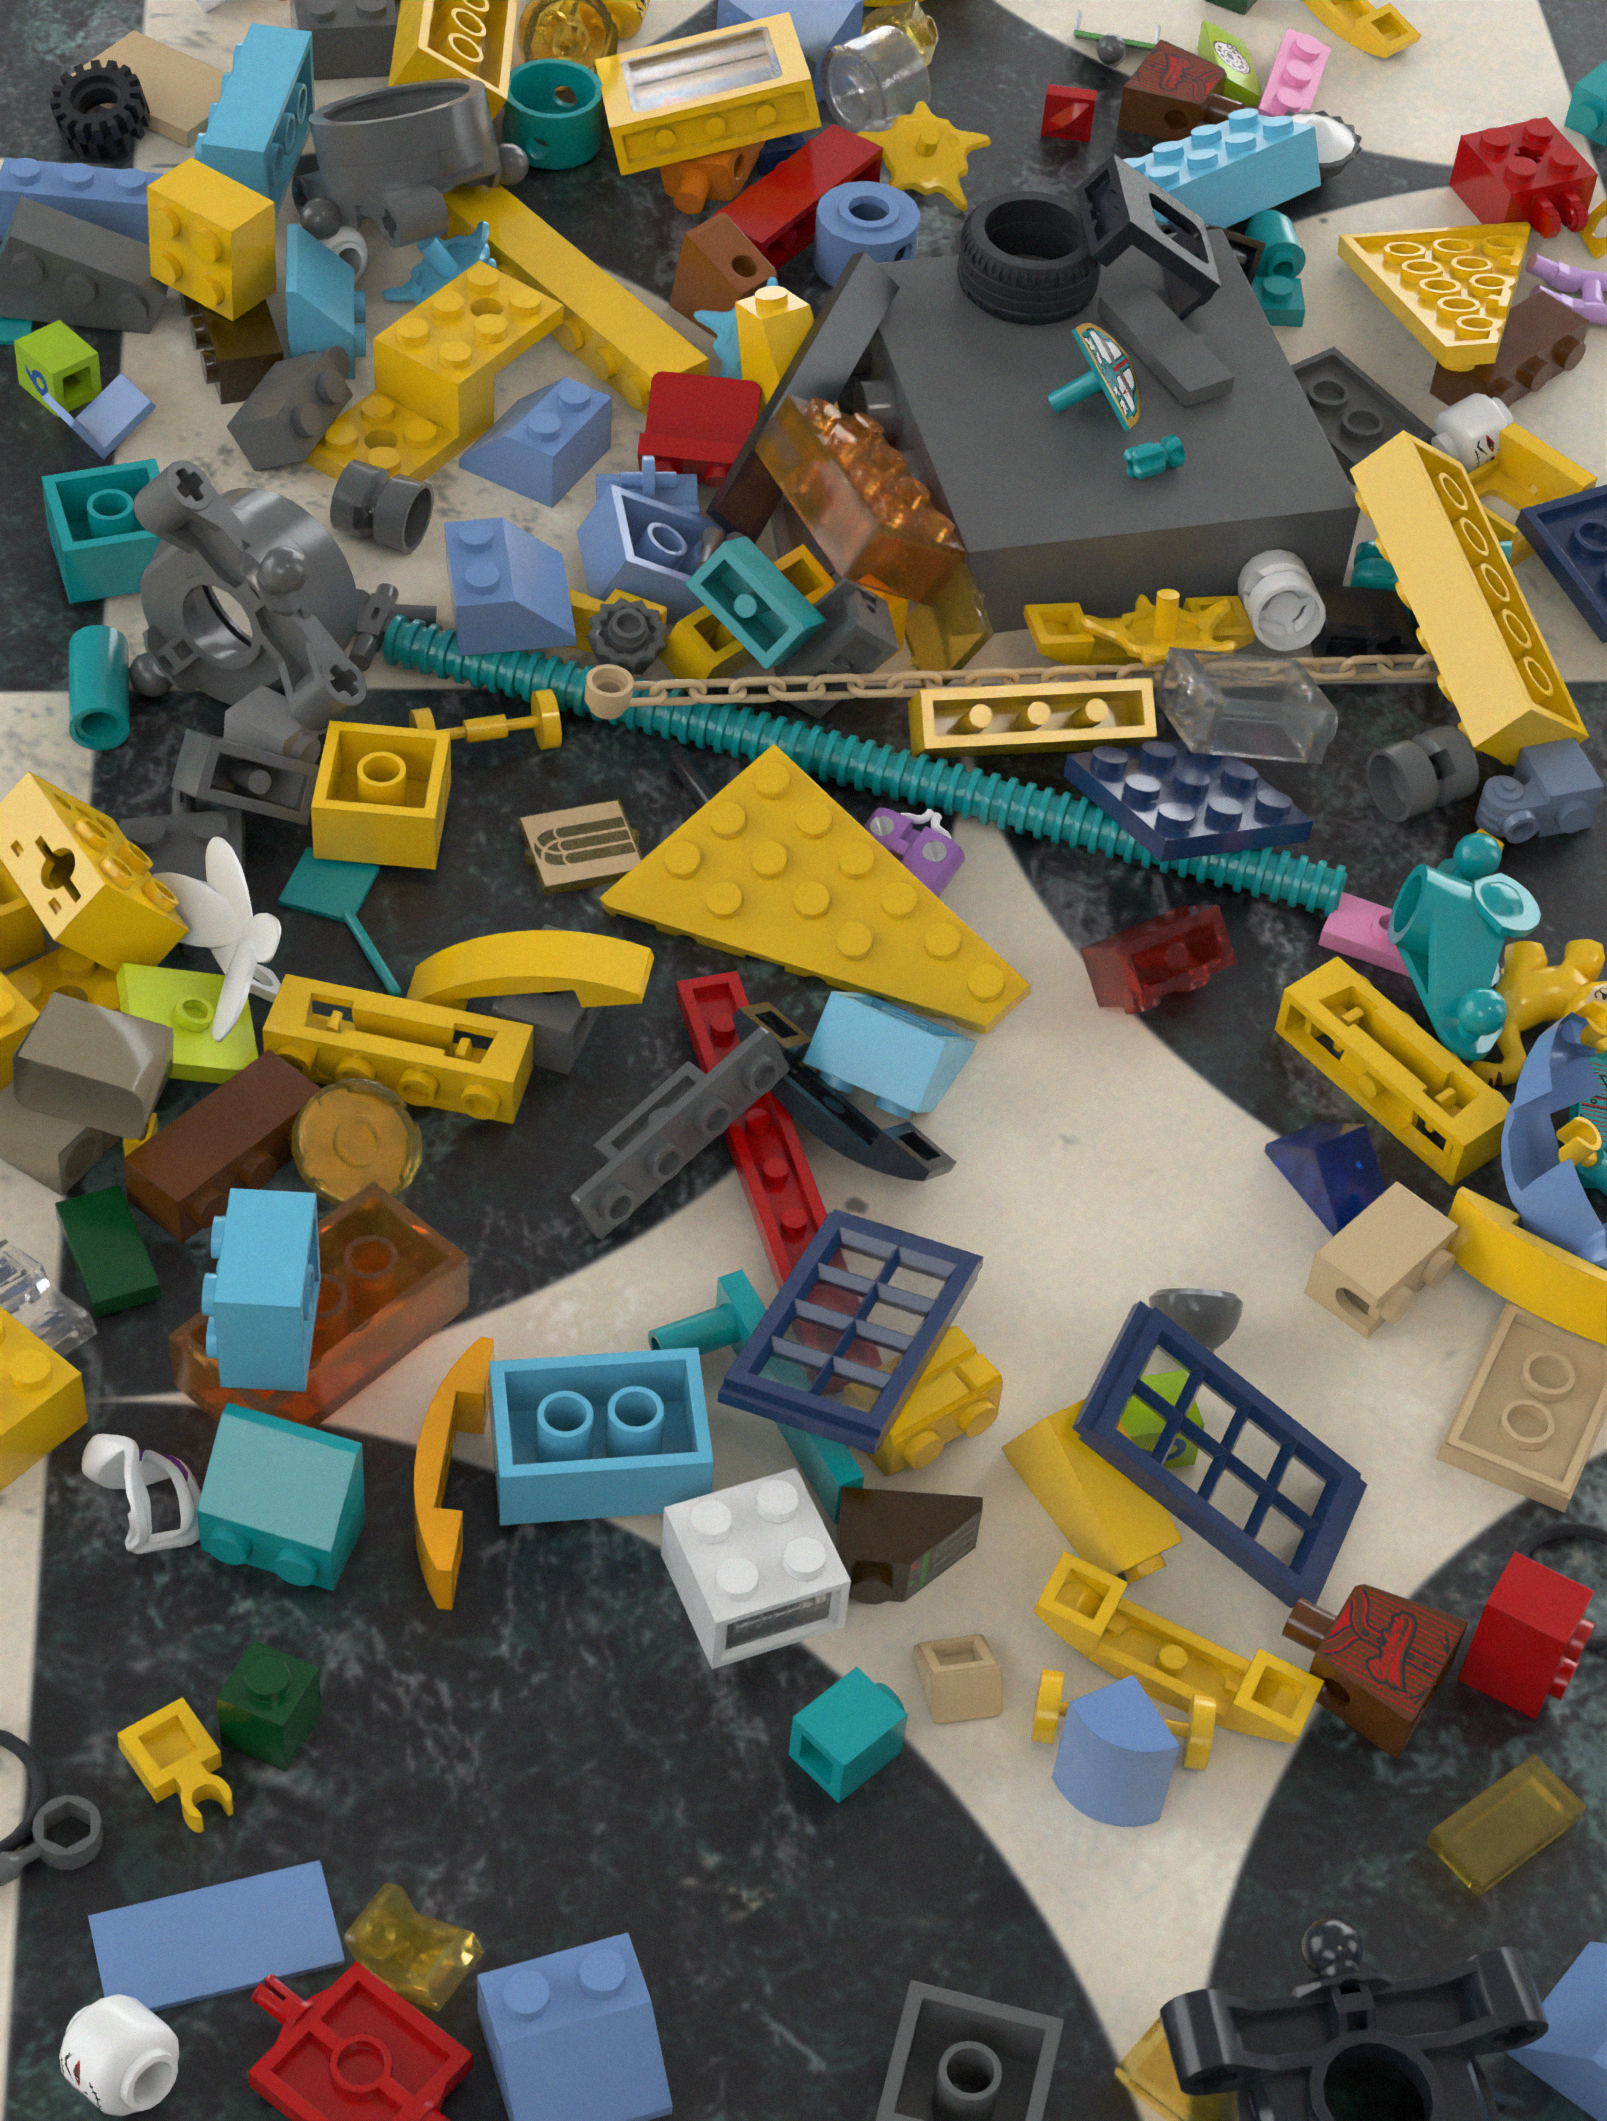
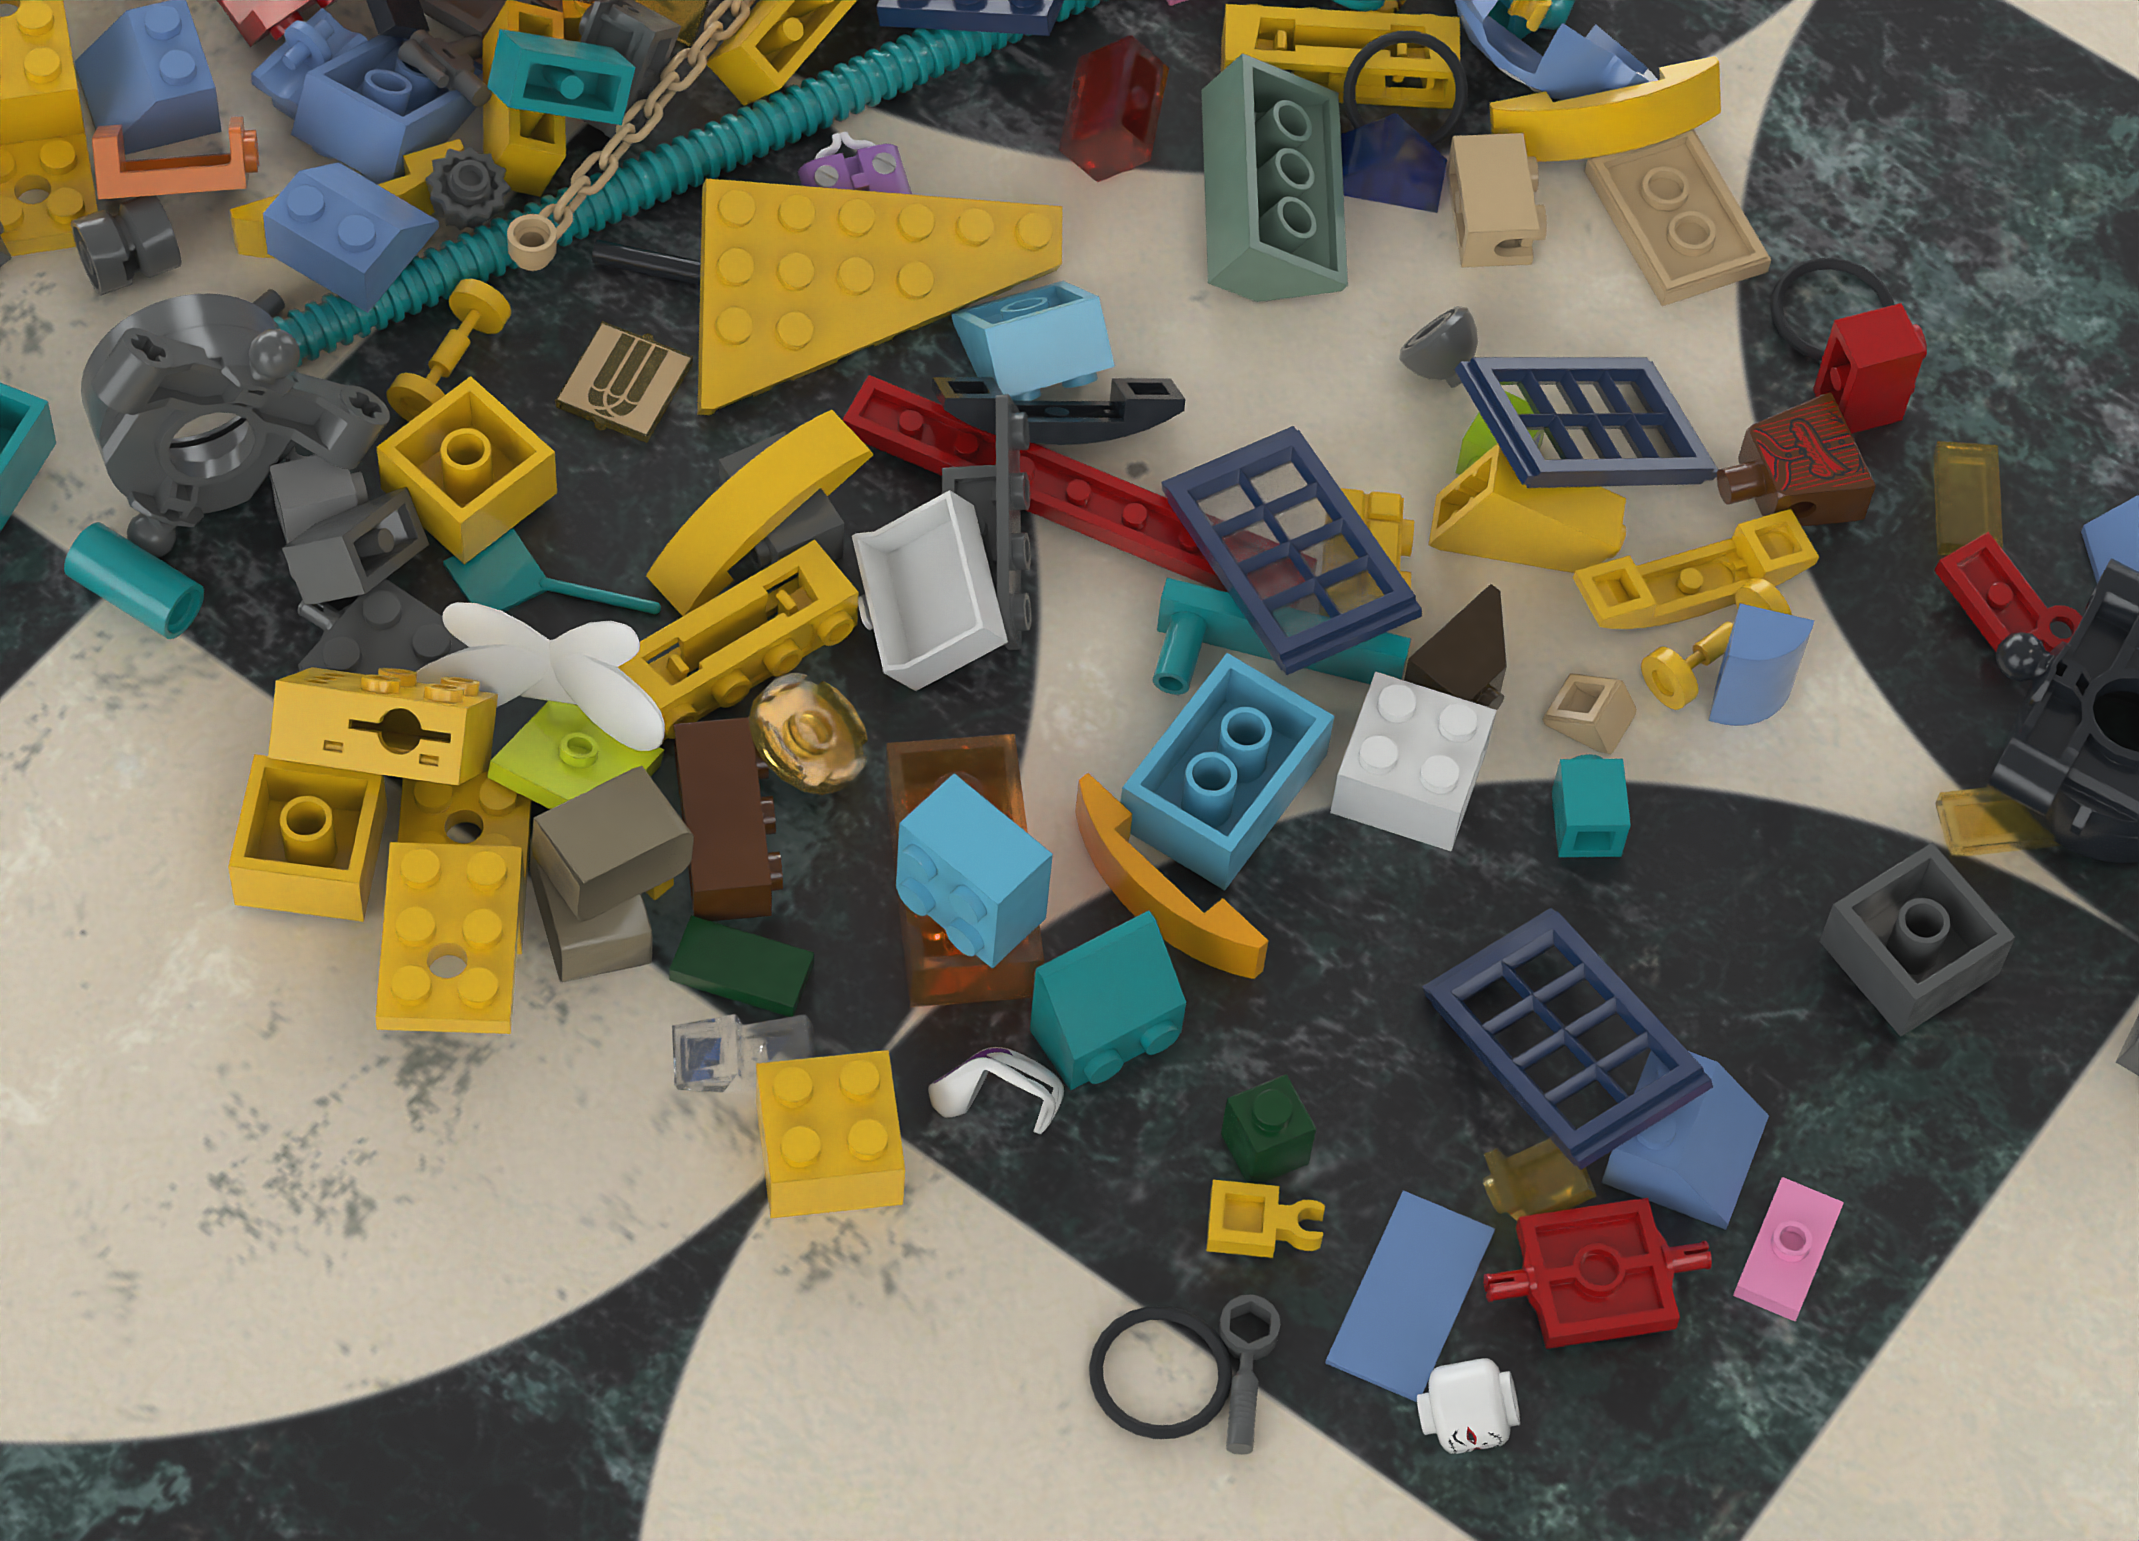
camera: 50 degrees left, 10 degrees up
(438, 458) = (172, 175): none -> orange panel
(541, 1965) = (1631, 1113): none -> dark blue piece
(565, 1129) = (929, 591): none -> white container
(1216, 1104) = (1273, 184): none -> sand green slope
(1420, 1908) = (1999, 596): none -> red hinge
(1456, 1099) = (1409, 37): none -> black tyre

